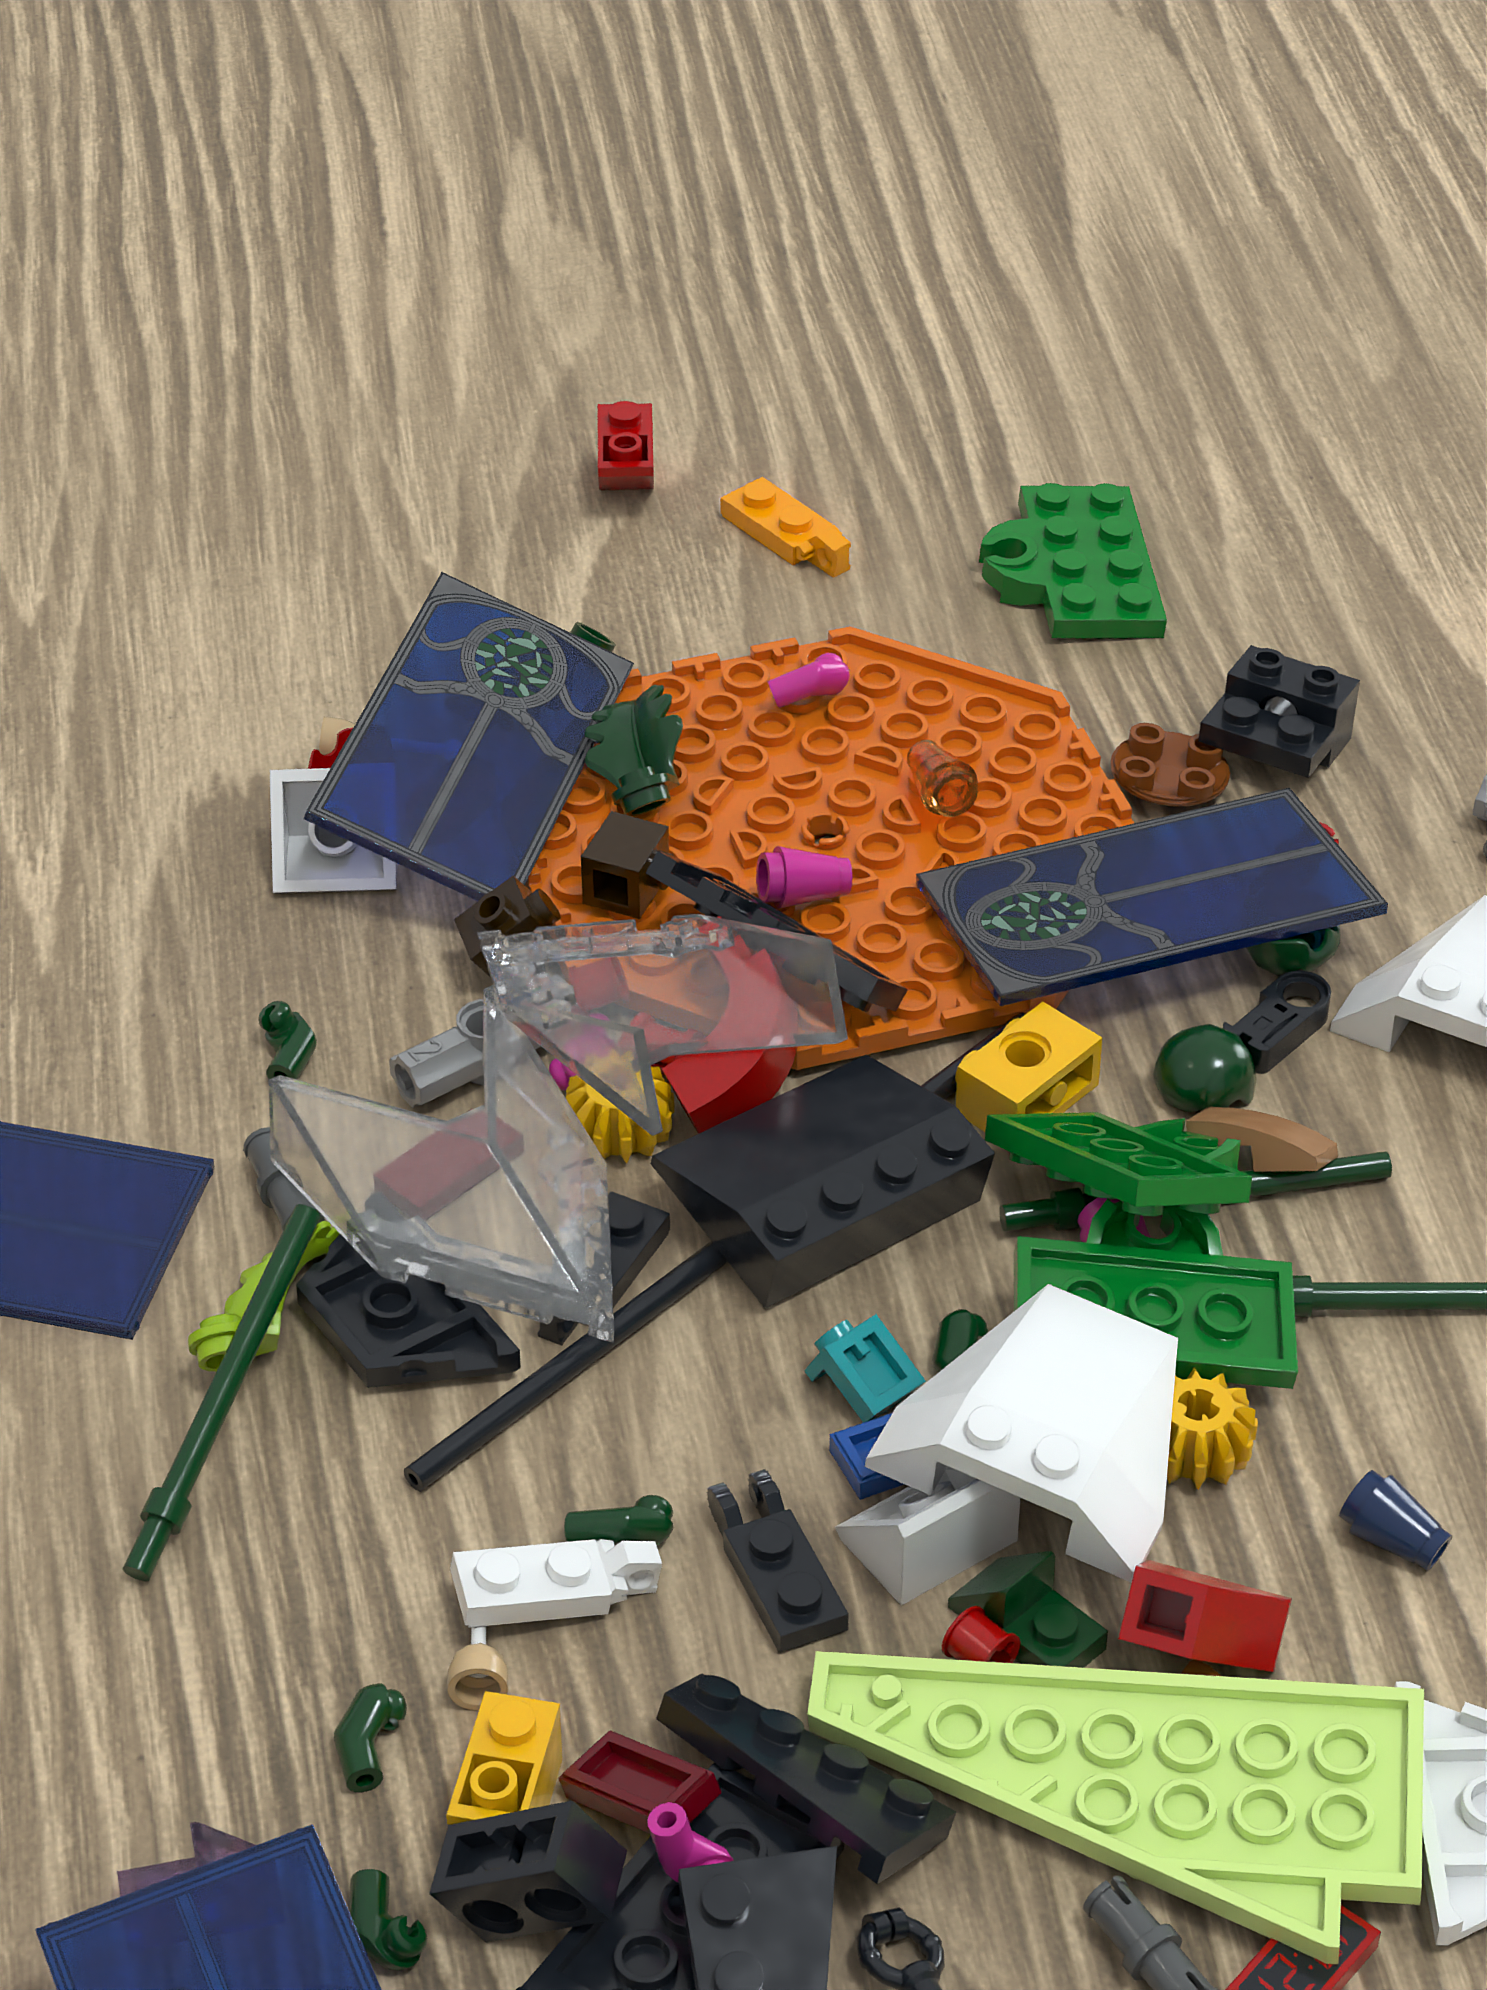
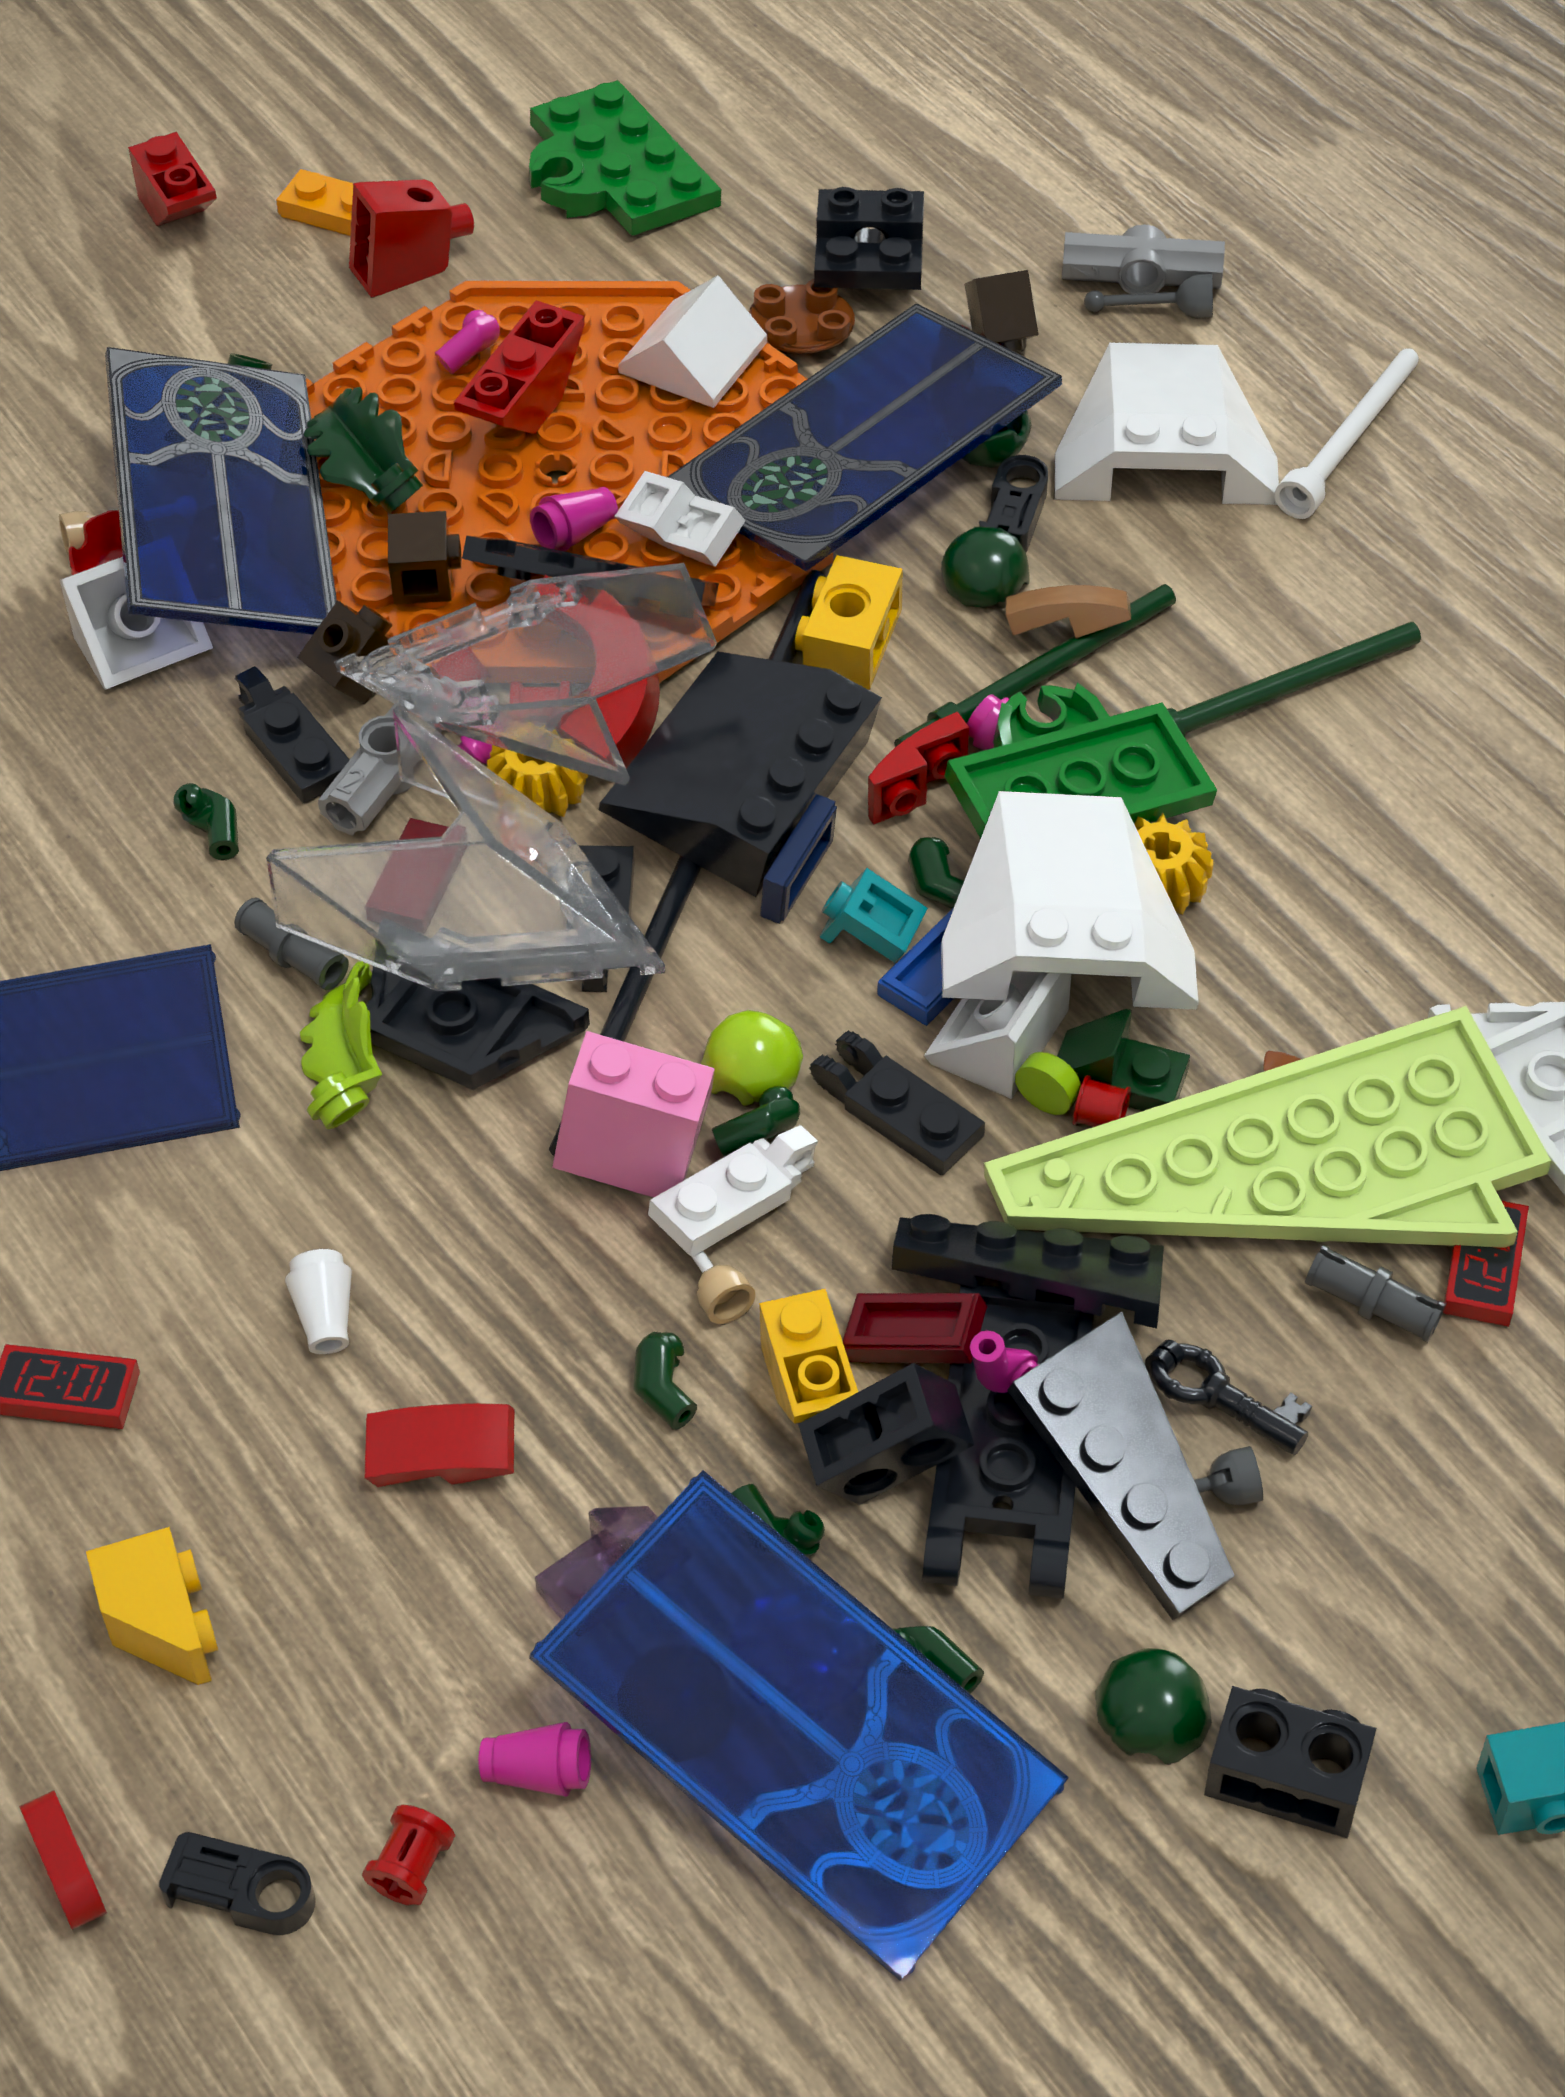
camera: 25 degrees left, 10 degrees up
(93, 1522) = (321, 1296): none -> white cone
(113, 1703) = (439, 1440): none -> red slope
(169, 1504) = (376, 1256): dark green bar -> none
(410, 989) = (288, 736): none -> black hinge
(481, 1460) = (631, 1115): none -> bright pink slope
(656, 1455) = (752, 1055): none -> lime hair
(815, 562) = (402, 233): none -> red torso
(822, 1284) = (798, 859): none -> dark blue tile
(835, 726) = (526, 371): none -> red slope
(906, 914) = (678, 519): none -> white slope
(935, 1597) = (1048, 1083): none -> lime tile
(942, 780) = (636, 390): clear orange cone -> none
(979, 1241) = (902, 776): none -> red slope
(1039, 758) = (697, 345): none -> white slope
(1137, 1165) = (989, 664): green plate -> none
(1204, 1617) = (1259, 1015): red slope -> none
(1376, 824) = (1002, 308): none -> dark brown brick
(1394, 1520) = (1349, 881): dark blue cone -> none

